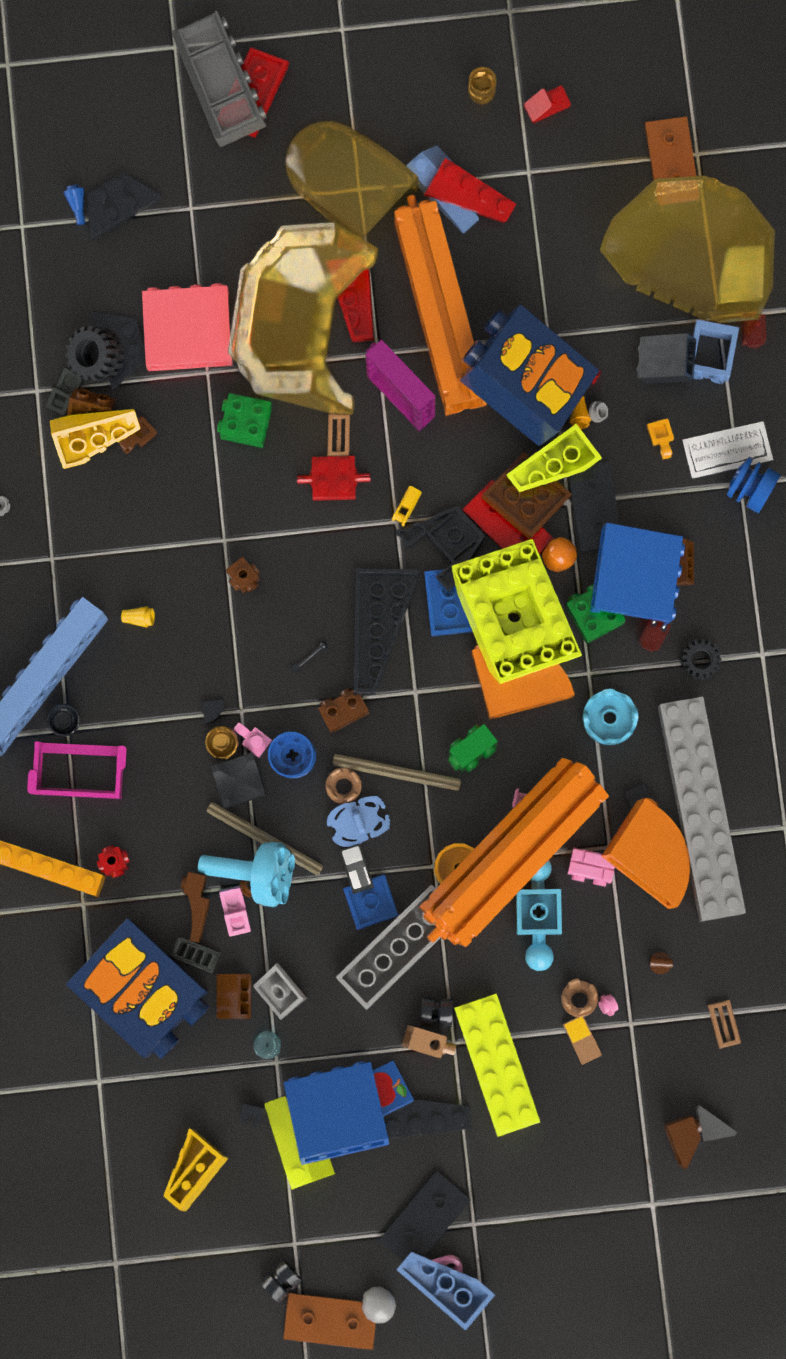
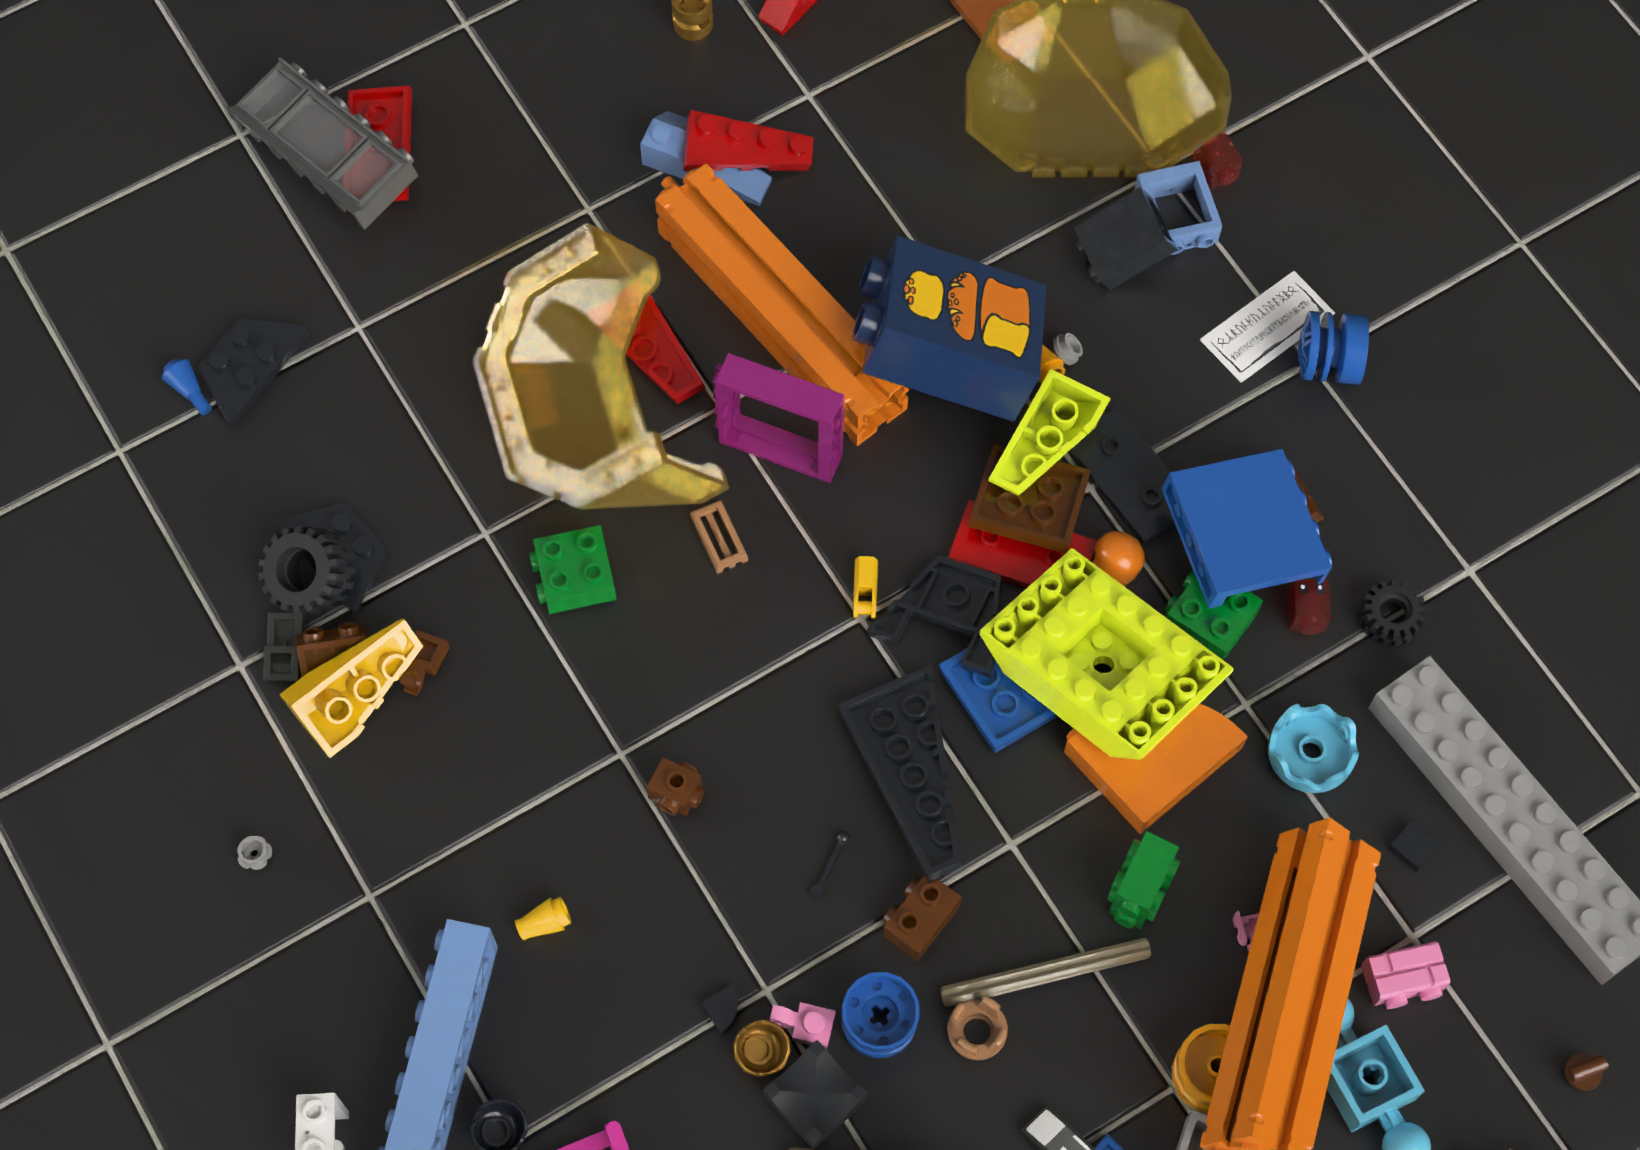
camera: 30 degrees left, 15 degrees down
(186, 327) = (428, 482): coral panel -> none
(333, 478) = (740, 596): red plate -> none
(346, 175) = (548, 184): clear yellow windscreen -> none
(357, 821) = (1026, 1072): medium blue shield -> none
(651, 853) = (1484, 912): orange brick -> none
(661, 435) = (1171, 341): light orange plate -> none

